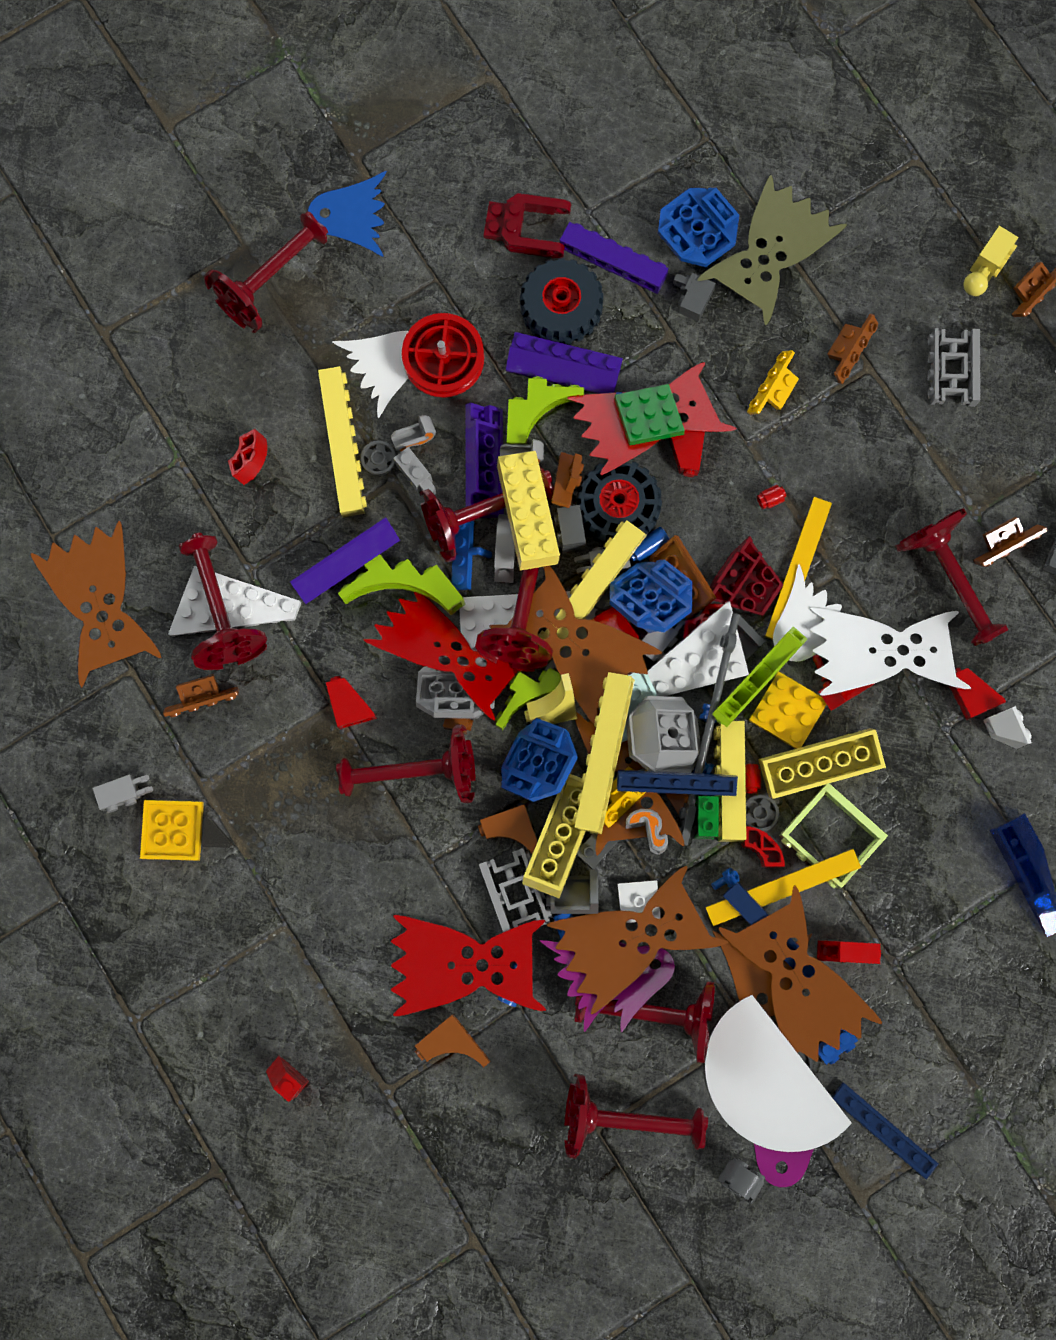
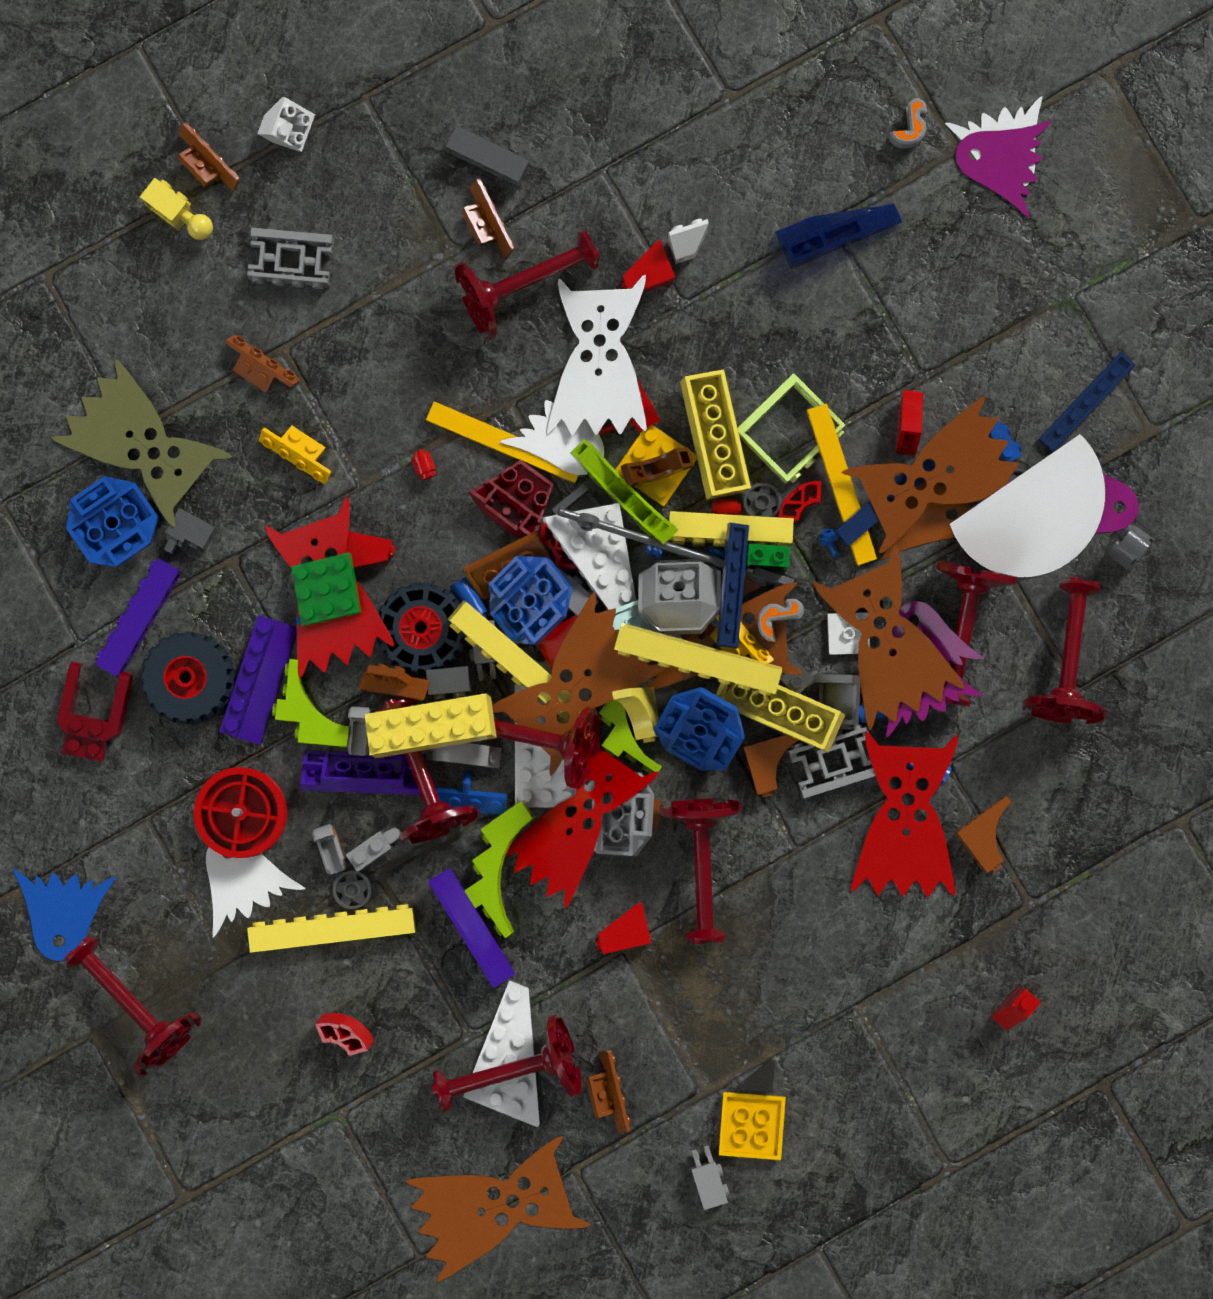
camera: 90 degrees left, 5 degrees up
(785, 709) = (657, 467): none -> reddish brown arch

